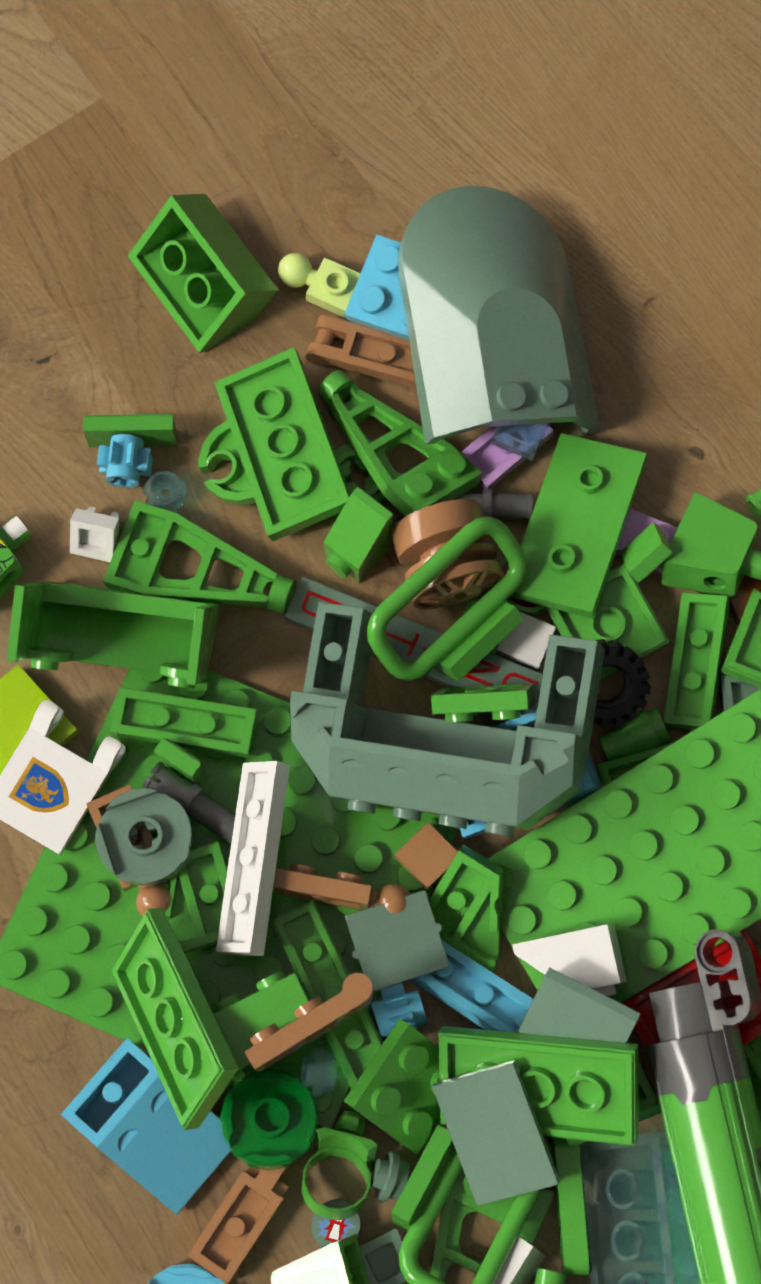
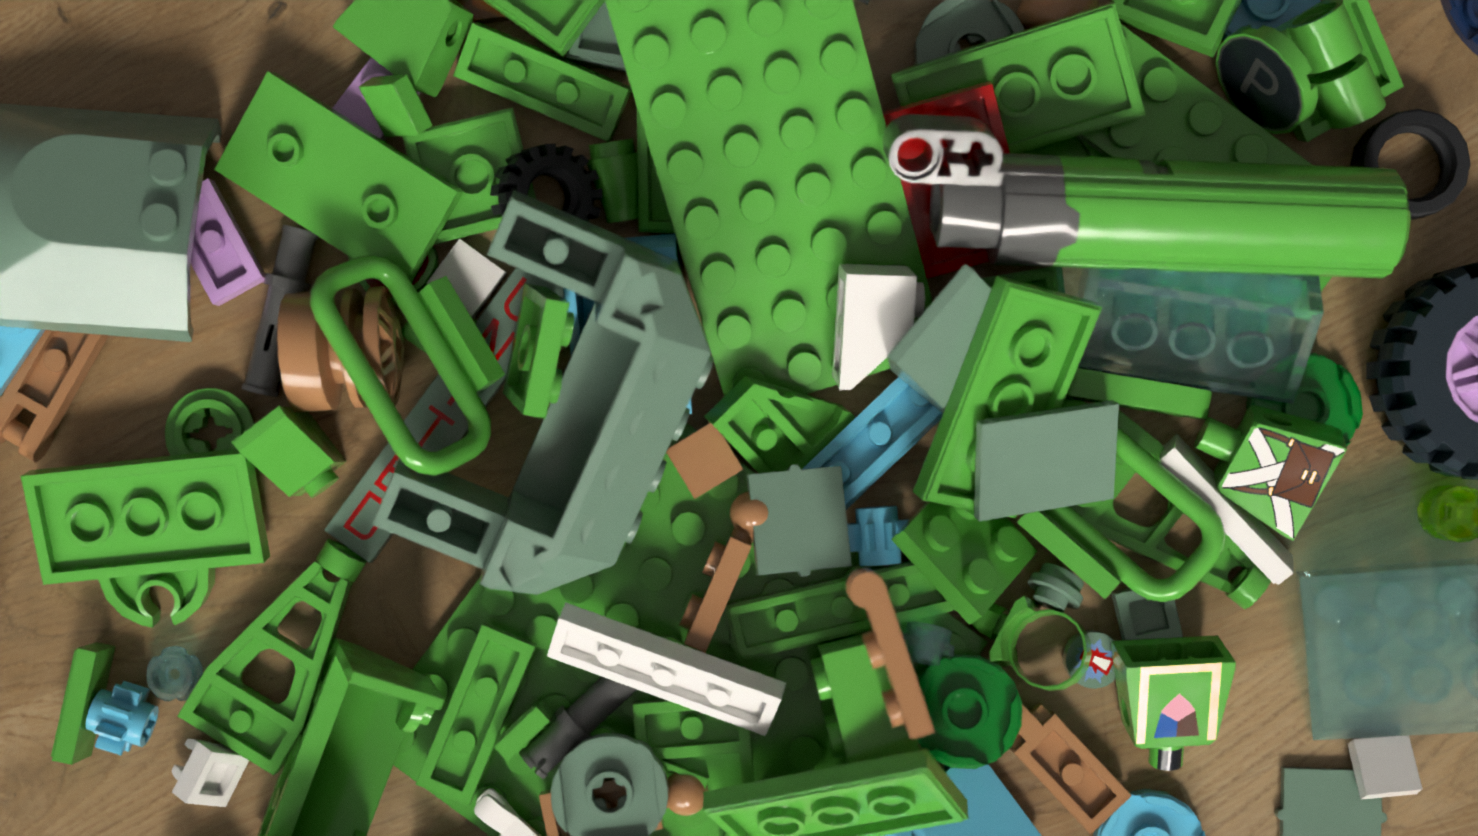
camera: 75 degrees left, 15 degrees up
(436, 480) = (247, 358): bright green plate -> none
(520, 439) = (213, 222): clear light blue tile -> none

